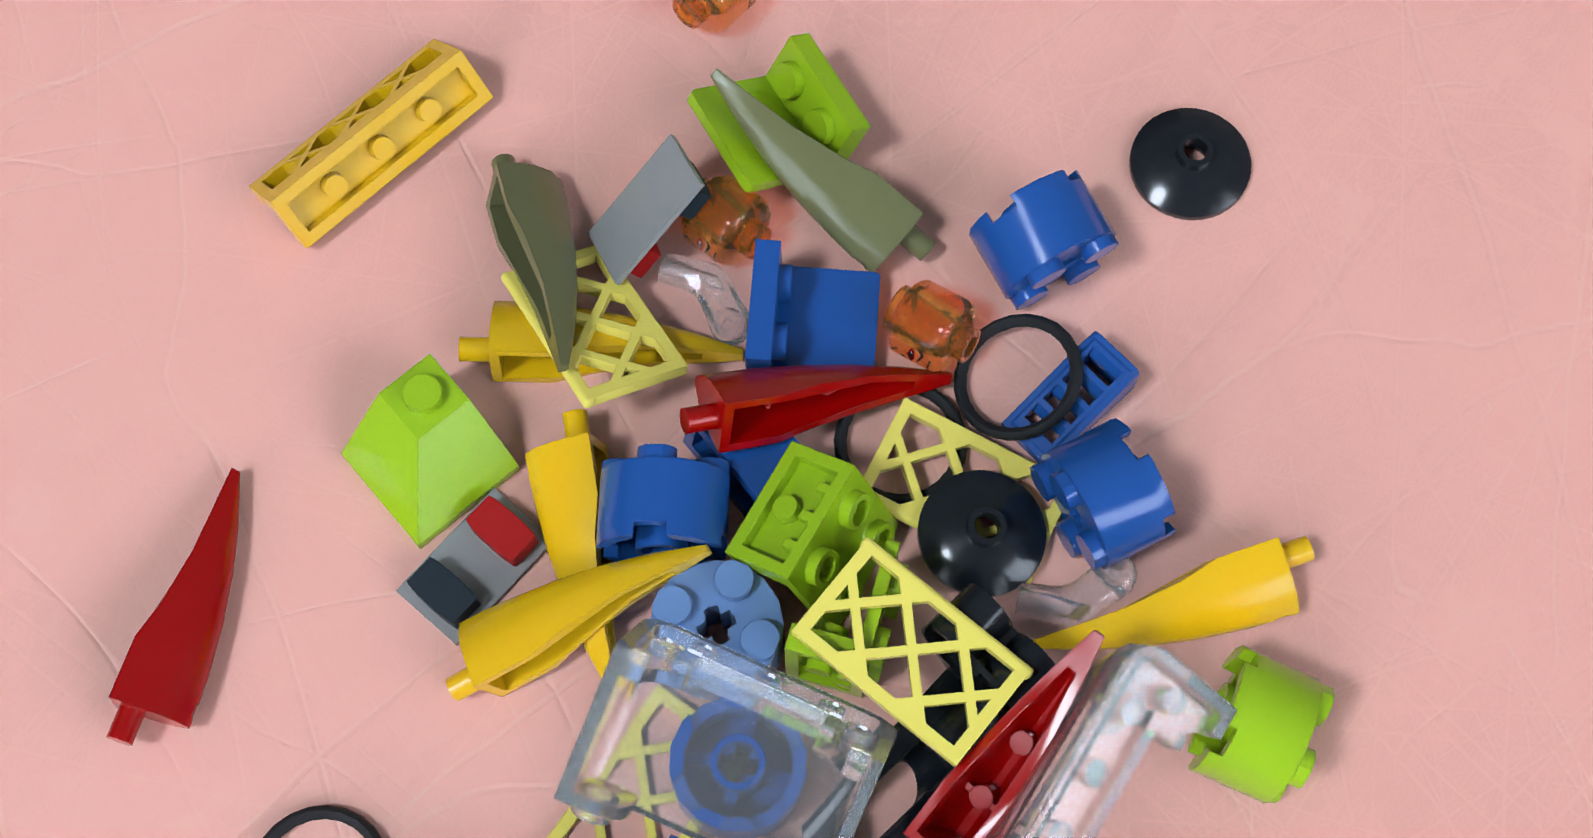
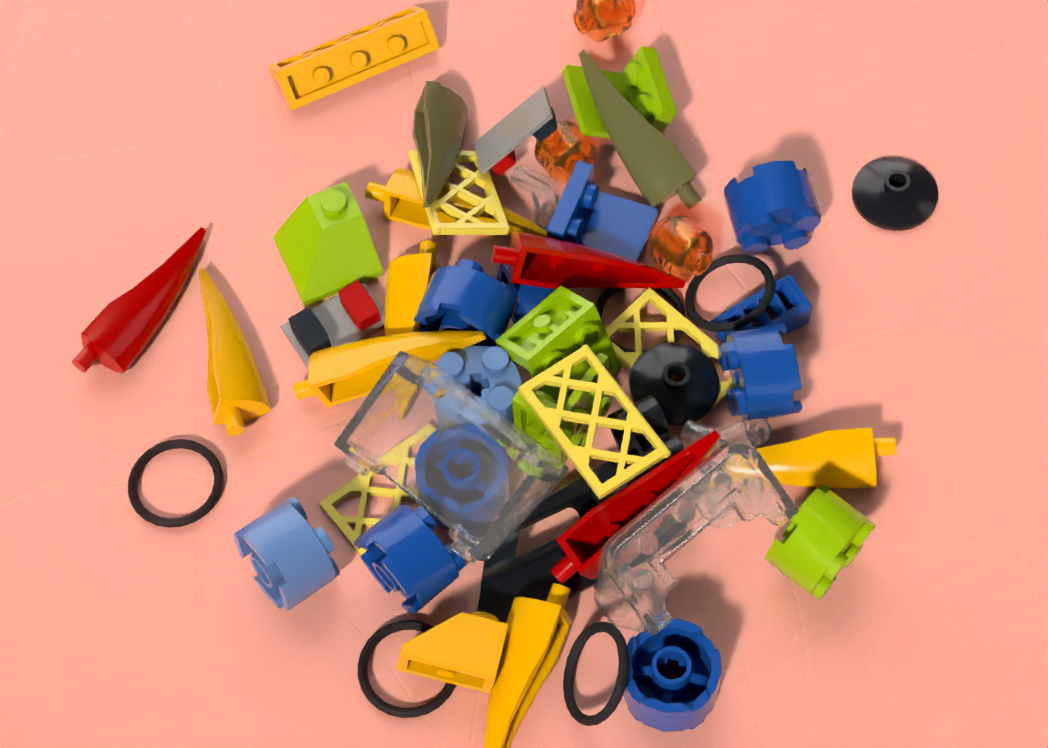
camera: 20 degrees right, 10 degrees down
(350, 685) = (234, 379): none -> yellow piece

